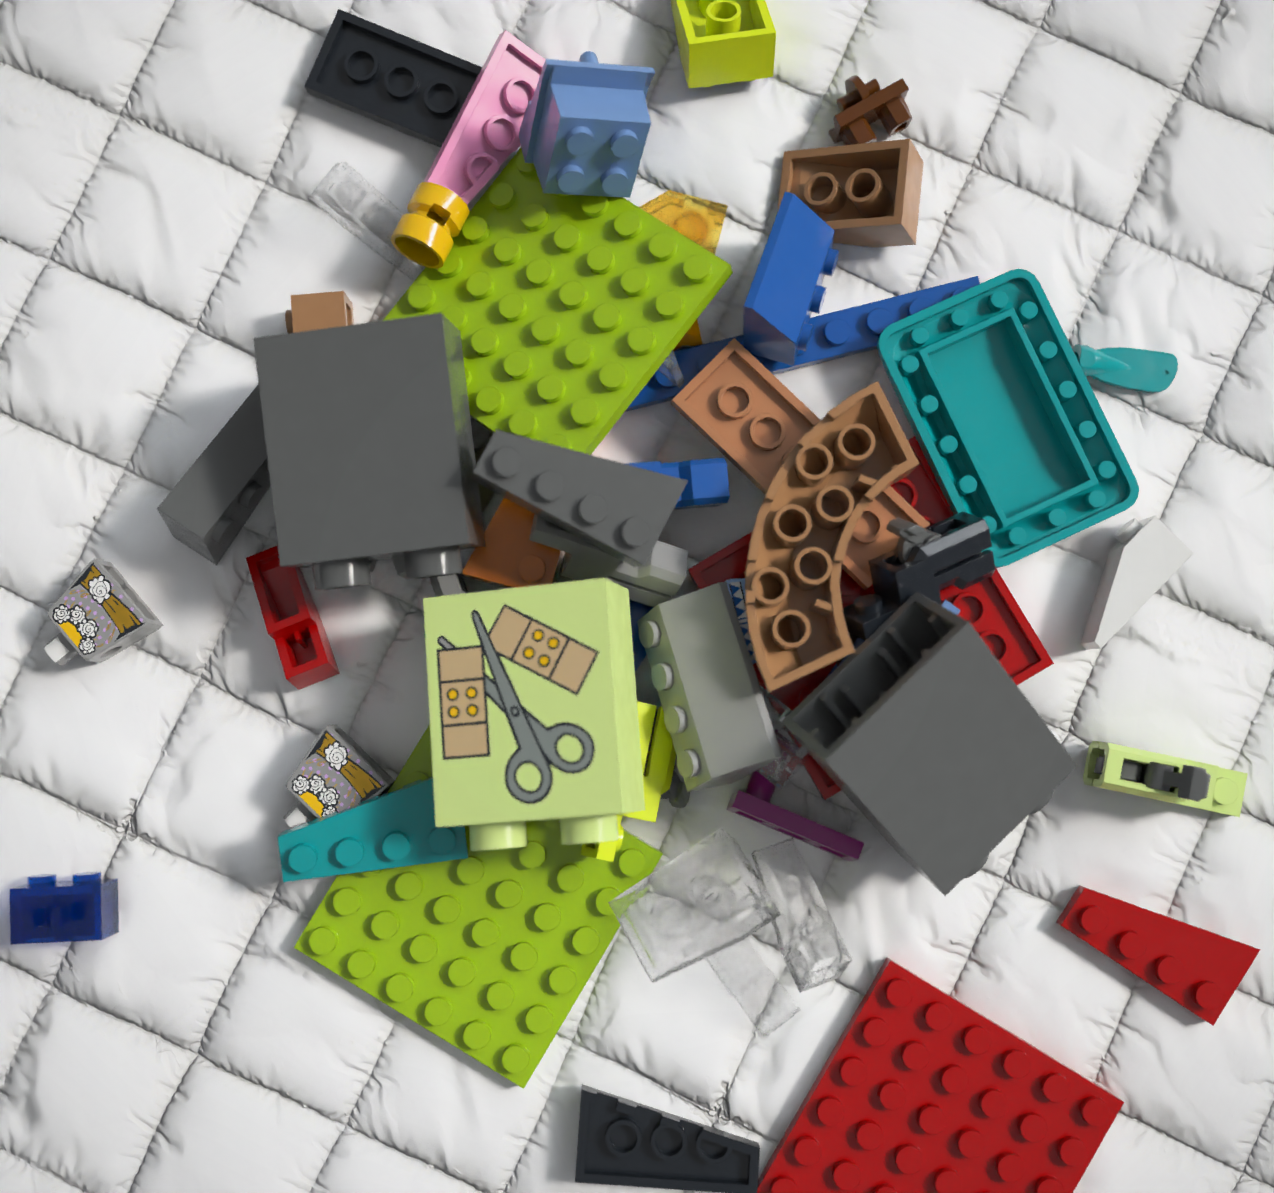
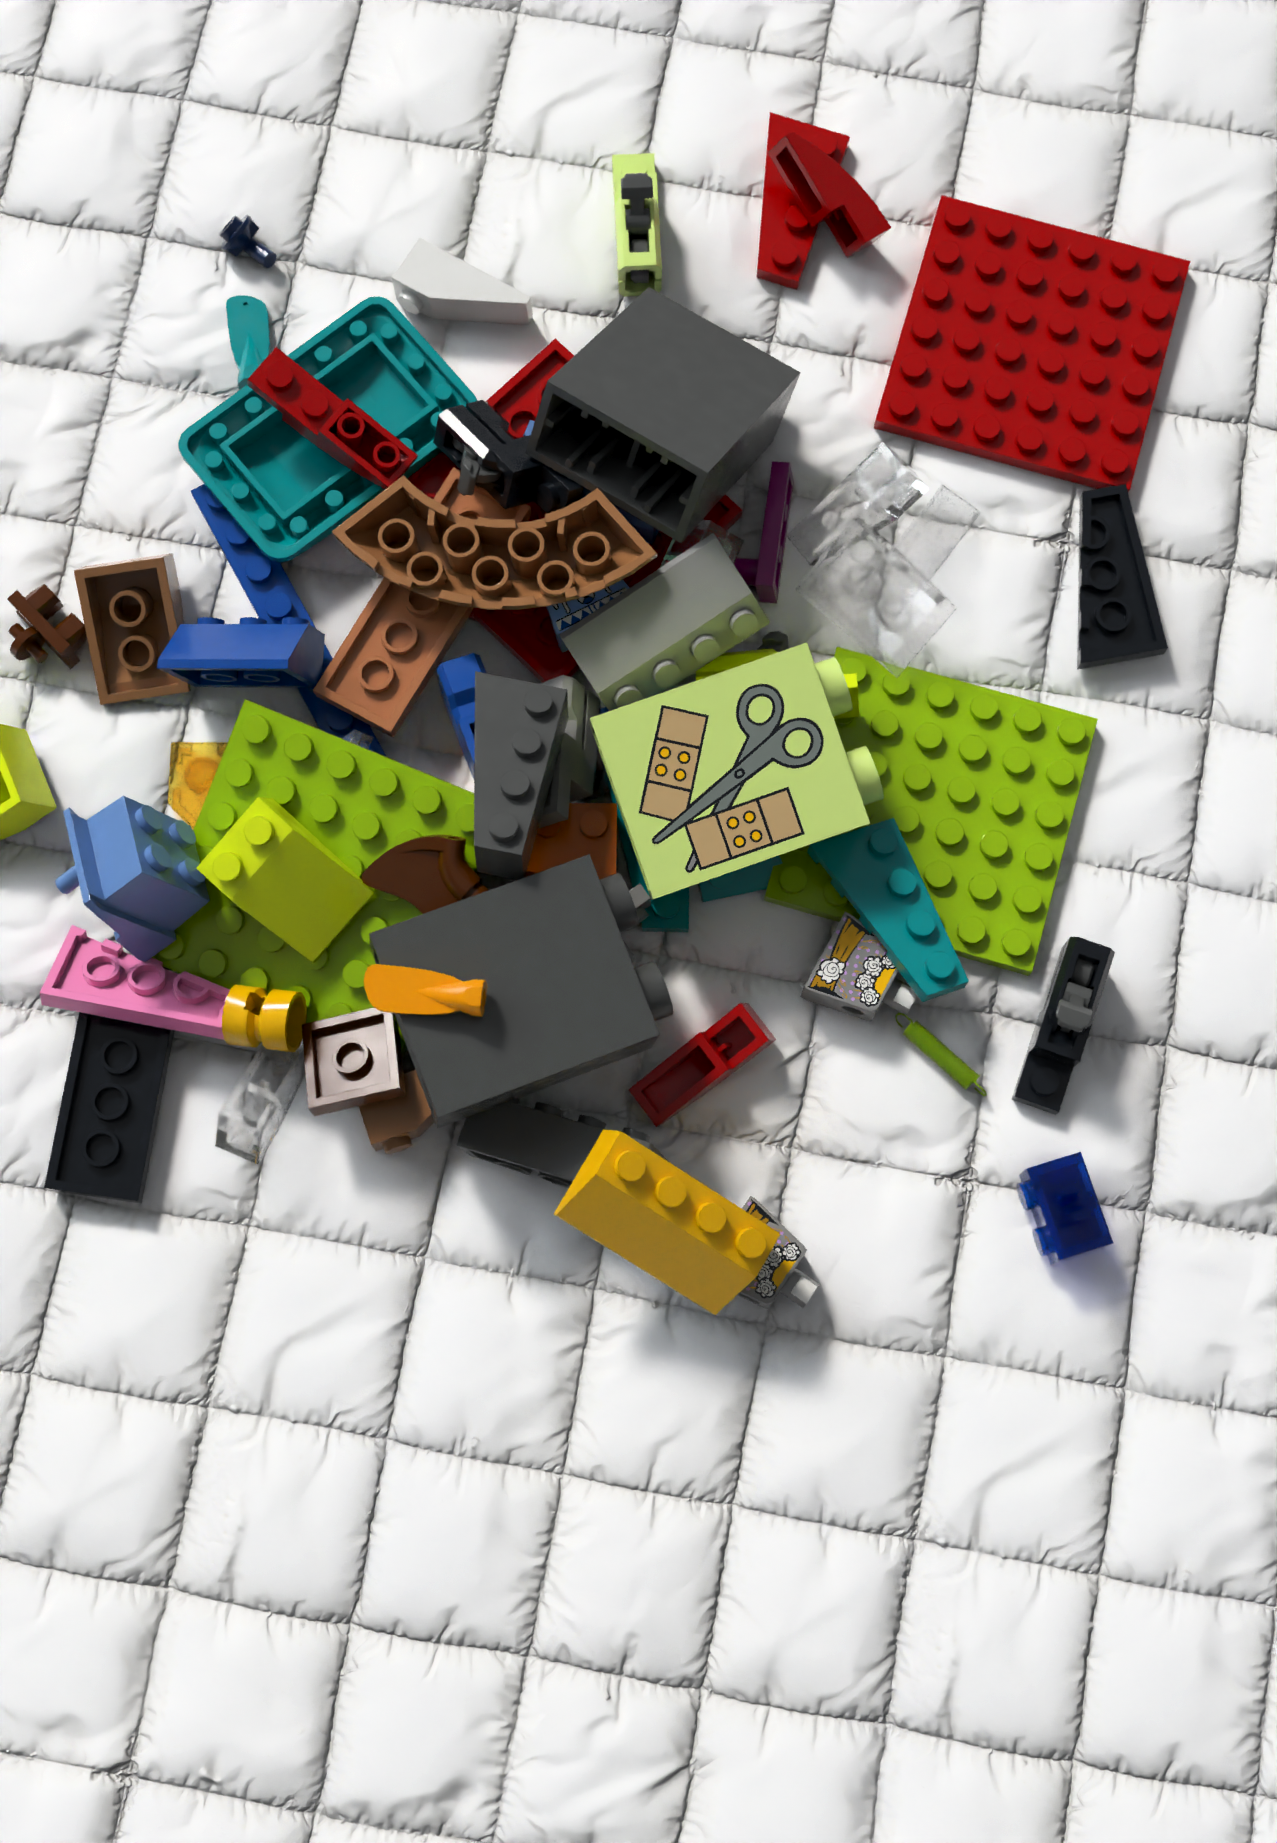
camera: 105 degrees left, 10 degrees down
(125, 535) = (666, 1222): none -> yellow slope
(231, 964) = (1063, 1024): none -> black plate
(242, 839) = (941, 1054): none -> lime piece
(365, 286) = (352, 1060): none -> plate
(369, 349) = (422, 991): none -> light orange piece
(513, 397) = (426, 872): none -> reddish brown arm
(547, 265) = (285, 878): none -> neon yellow slope
(1007, 415) = (330, 423): none -> red slope
(1146, 983) = (828, 194): none -> red slope
(1240, 382) = (239, 236): none -> dark blue plate

